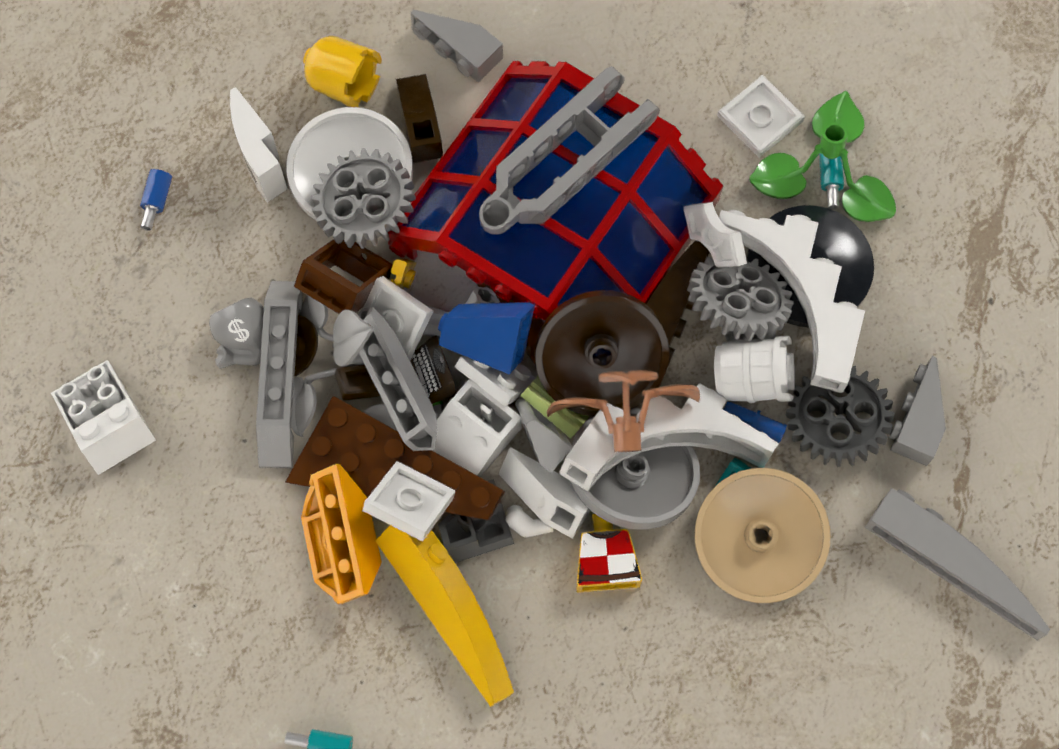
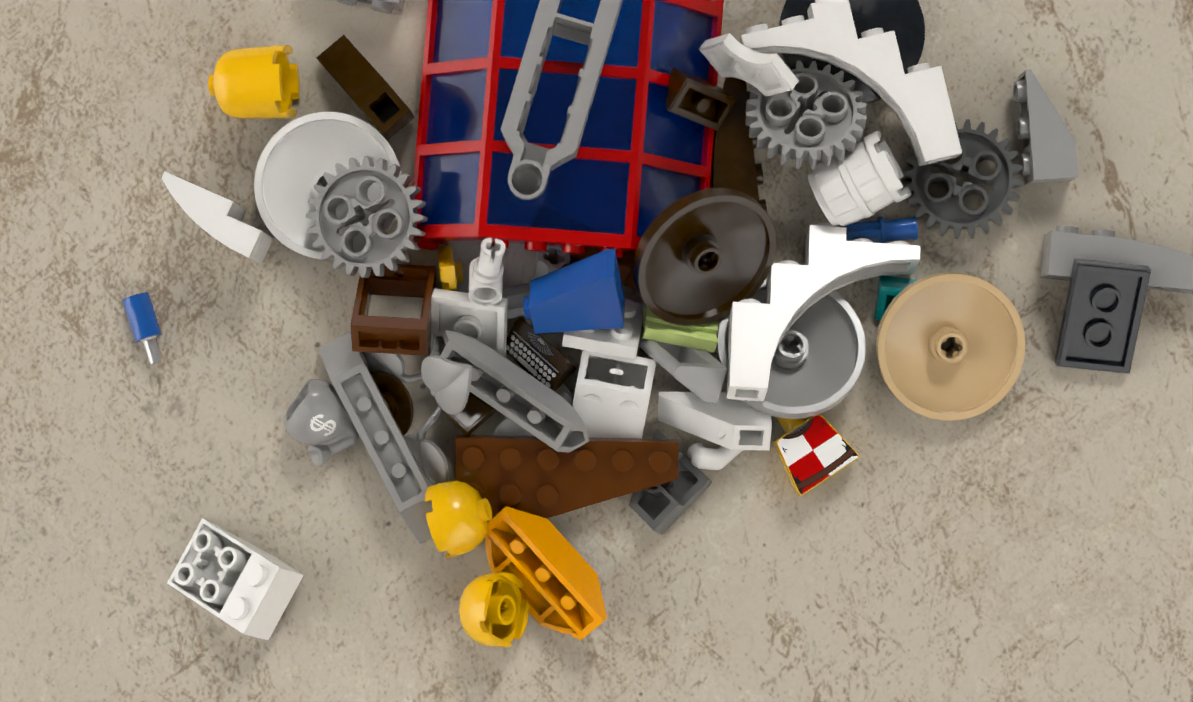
camera: 25 degrees left, 15 degrees up
(285, 543) = (493, 609): none -> yellow cylinder
(296, 451) = (457, 517): none -> yellow cylinder
(409, 501) = (595, 507): white plate -> none
(428, 279) = (487, 274): none -> white pin
(450, 607) = (682, 578): yellow slope -> none
(627, 430) = (773, 324): nougat plant -> none
(661, 241) = (697, 99): none -> dark brown slope
(899, 577) = (1102, 315): none -> black tile

